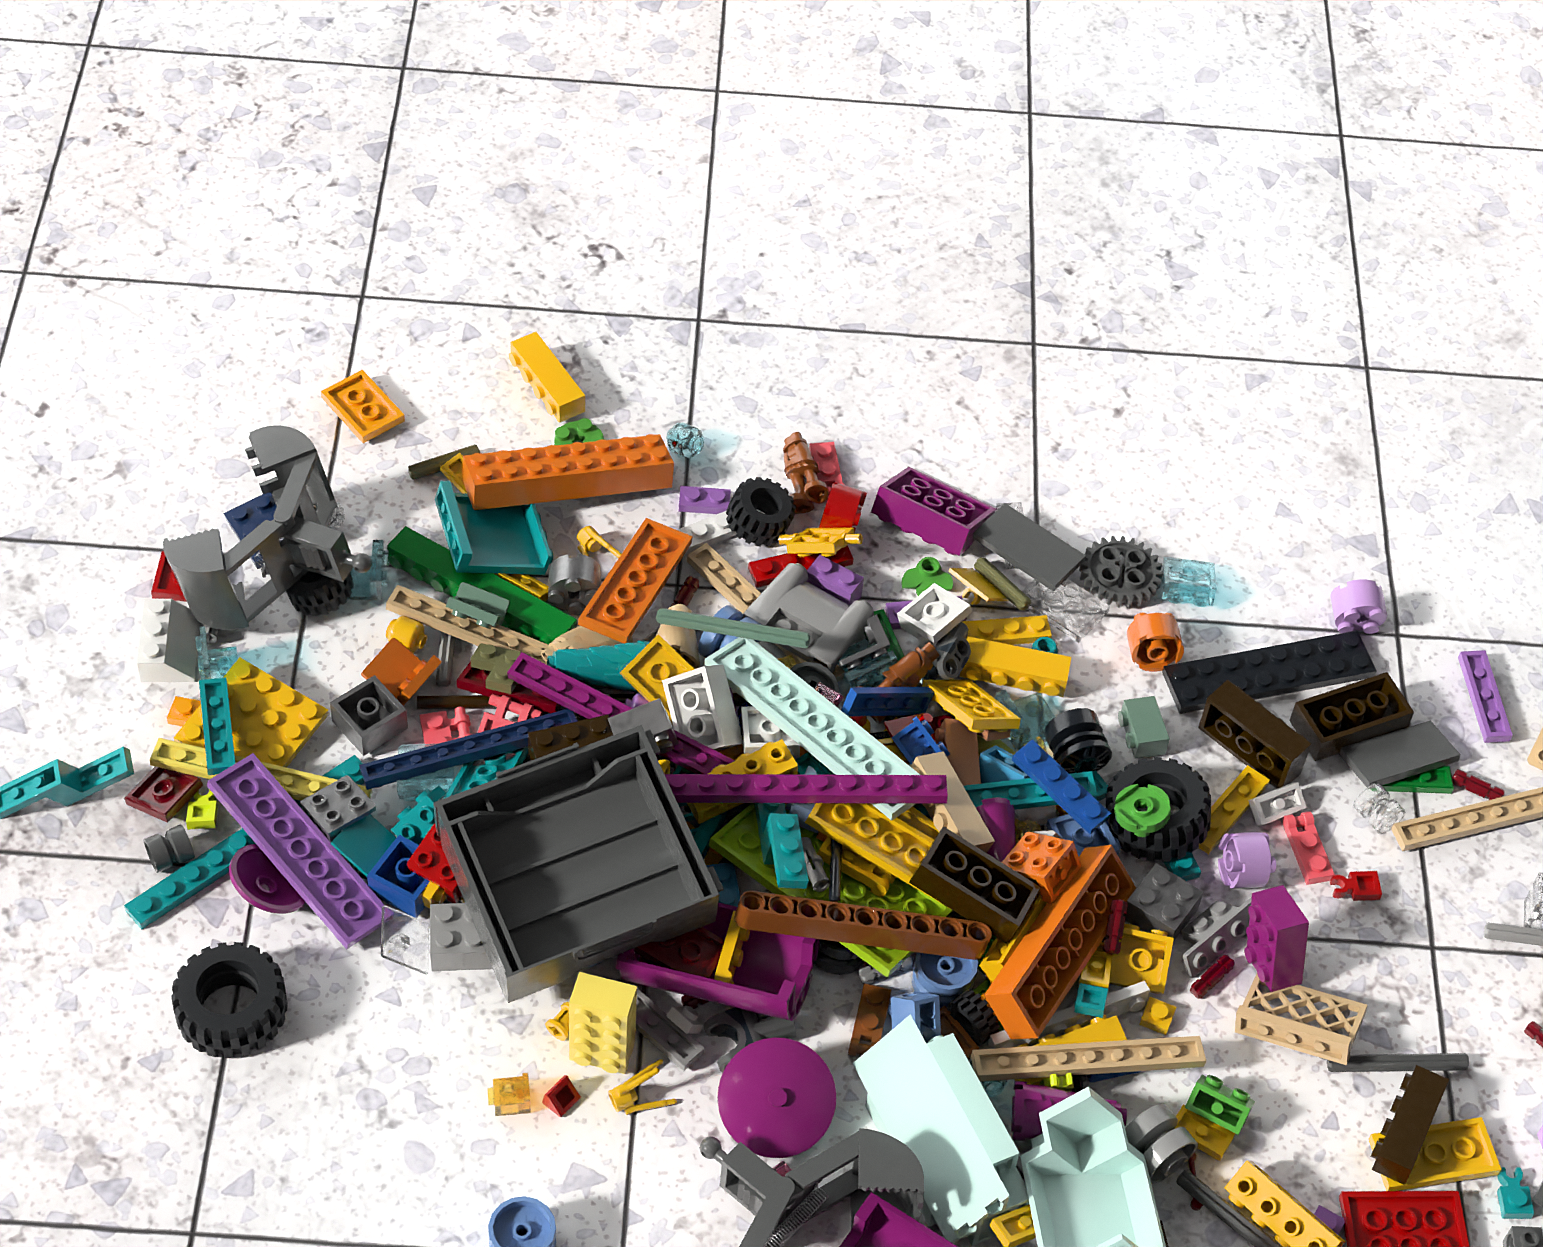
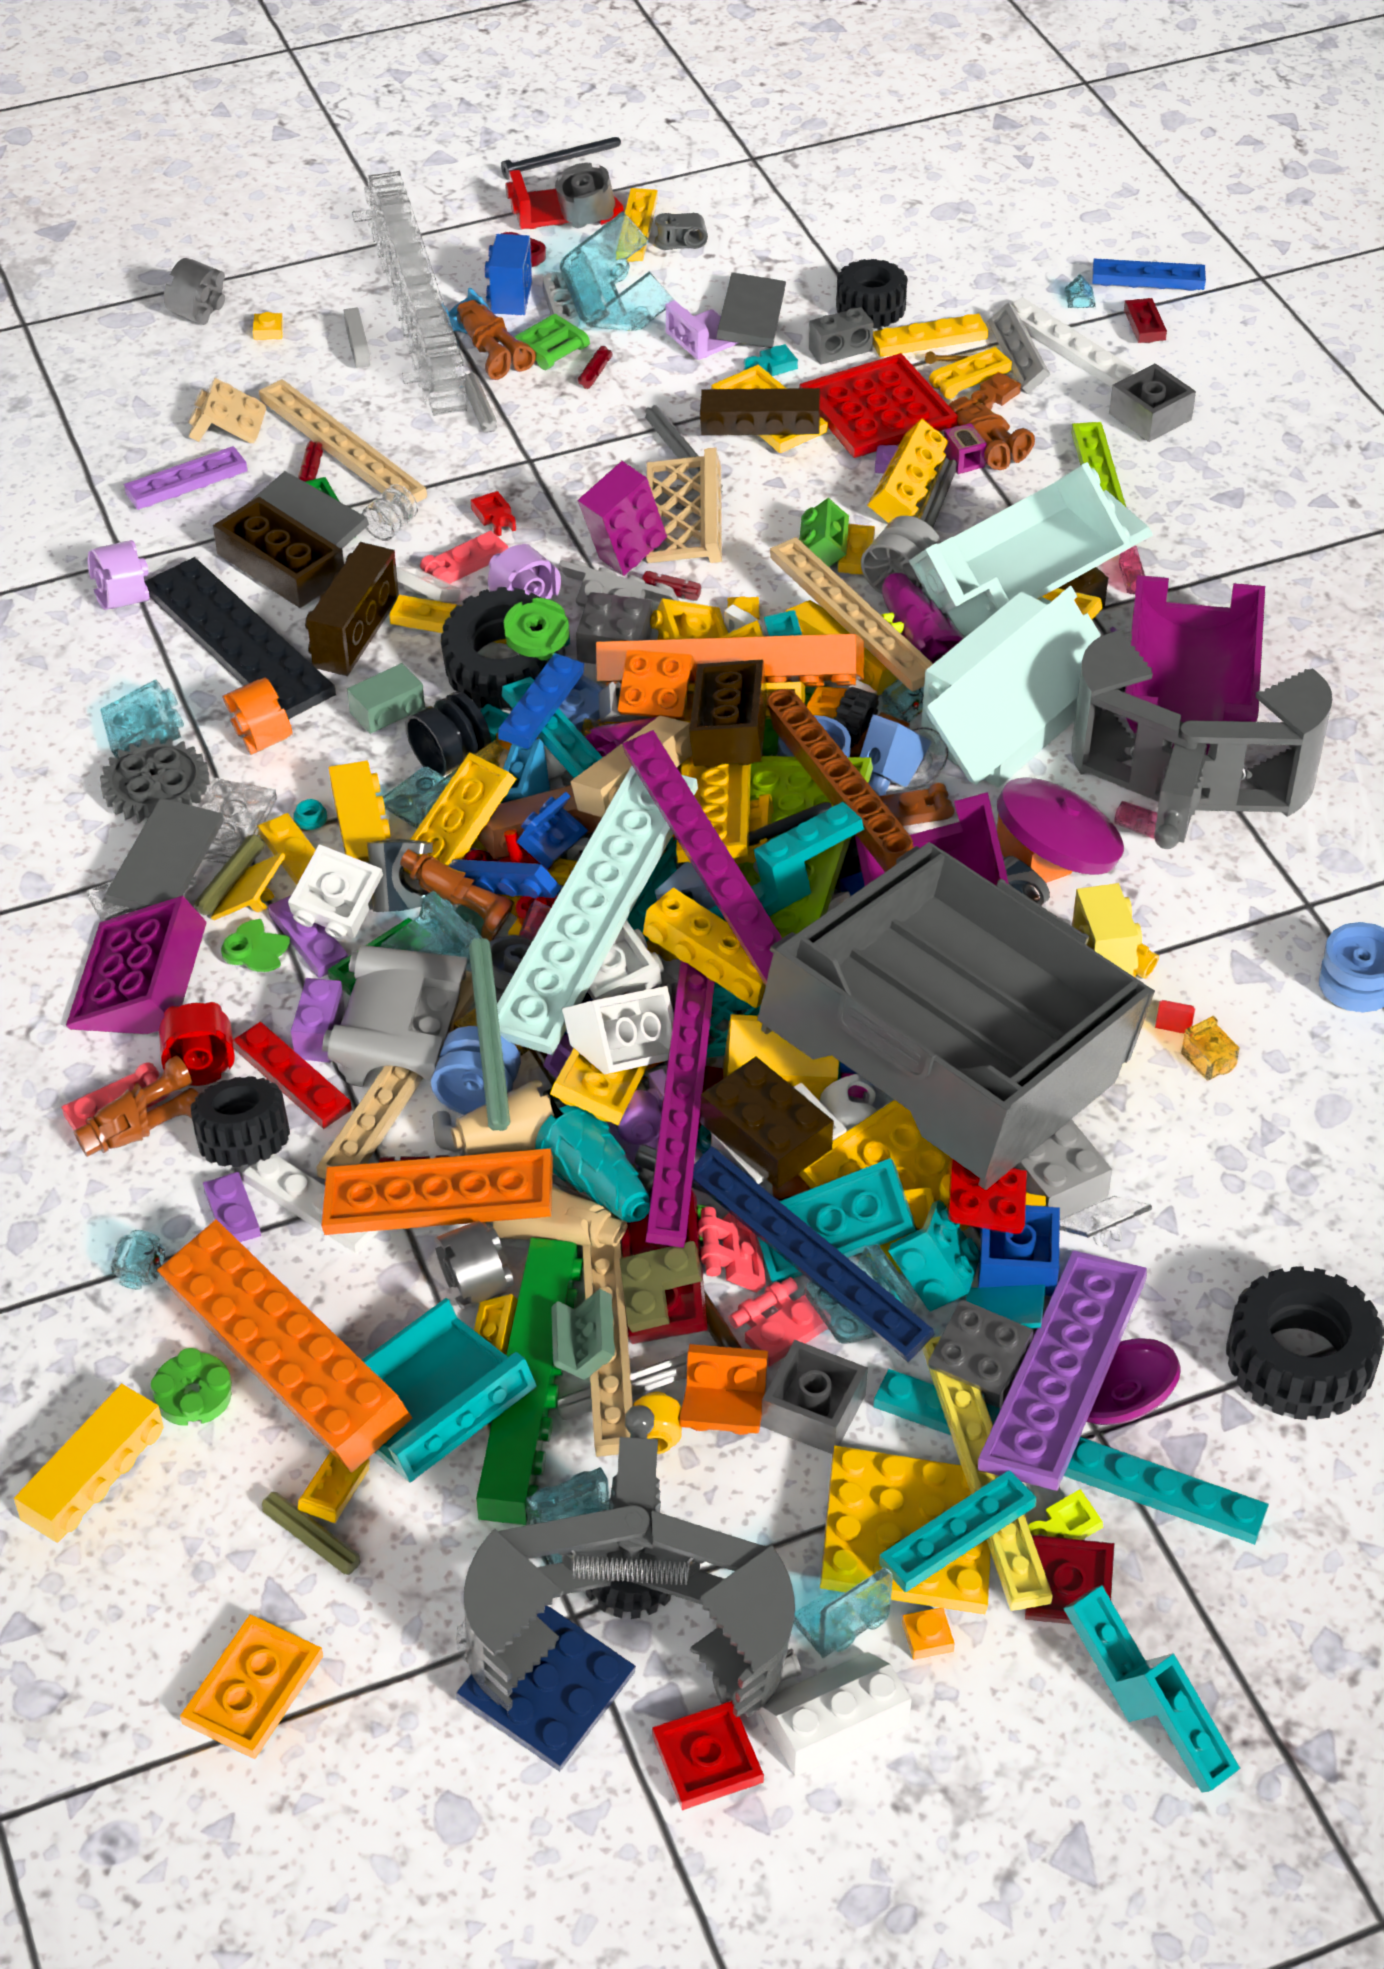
camera: 110 degrees left, 5 degrees down
(166, 849) = (1154, 1523): dark grey wheel -> none
(592, 541) = (374, 1292): yellow plant -> none
(651, 717) = (711, 1038): flat silver brick -> none
(820, 540) = (267, 1033): yellow plate -> none
(875, 634) = (426, 923): flat silver bracket -> none
(1115, 927) = (678, 633): dark red axle -> none

